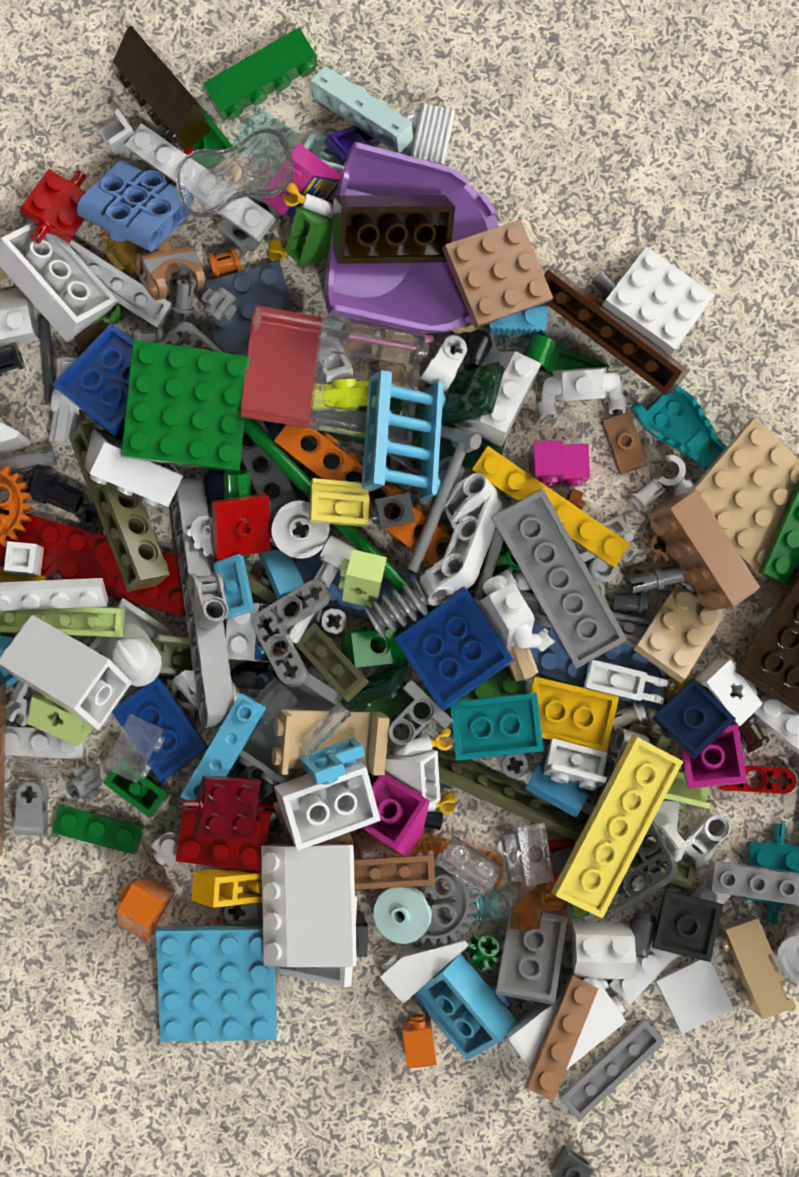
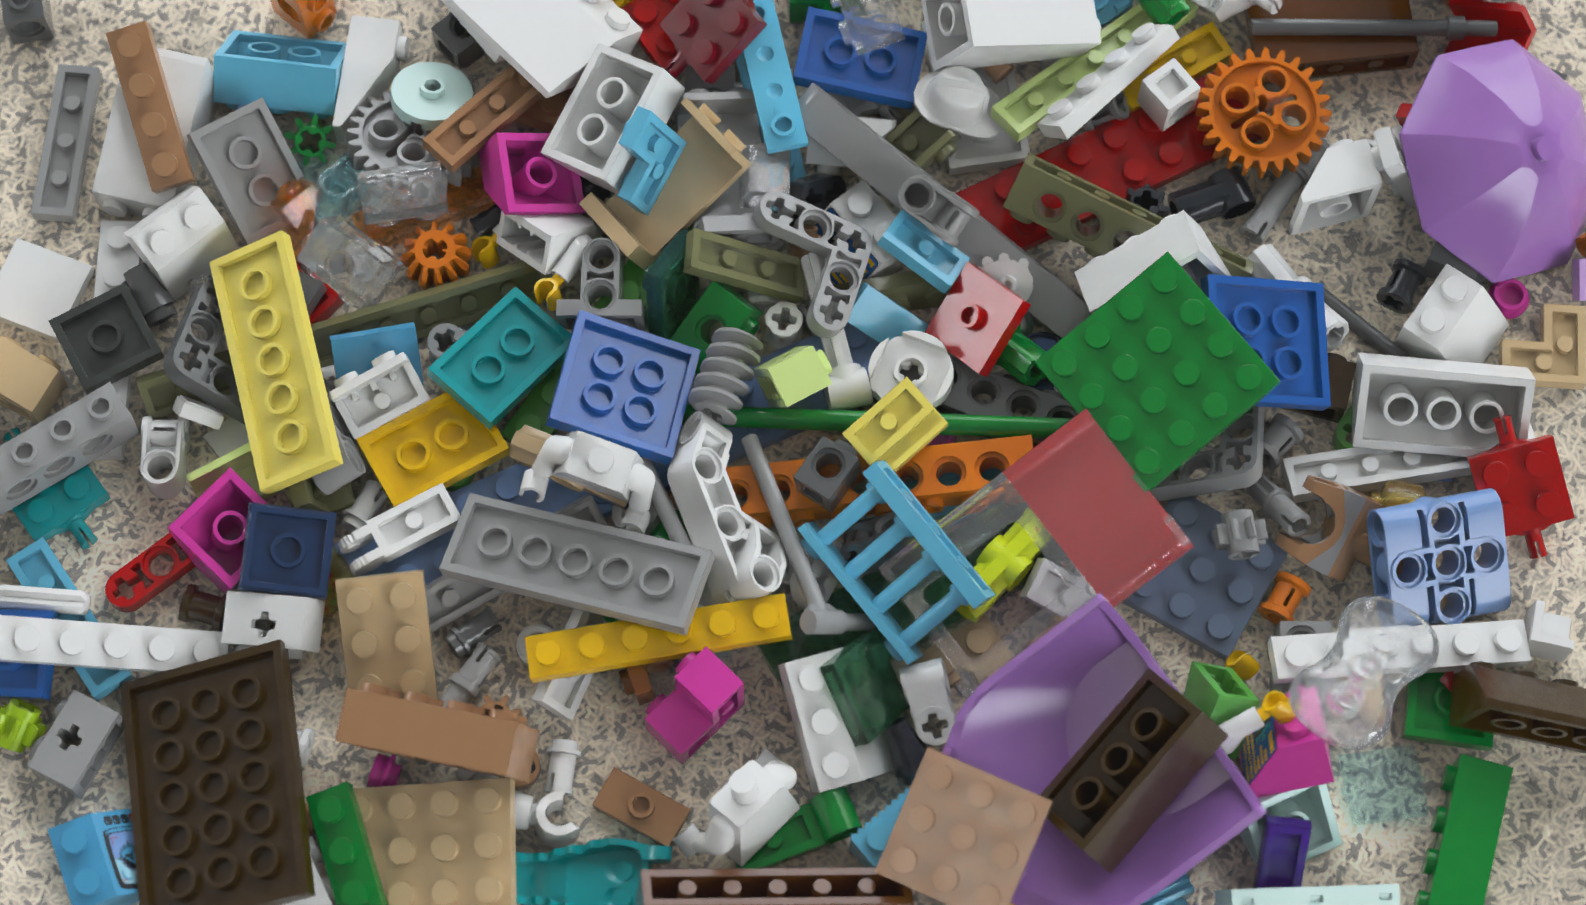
camera: 140 degrees right, 15 degrees down
(323, 729) = (686, 185): clear pin -> none
(483, 816) = (444, 244): none -> orange gear

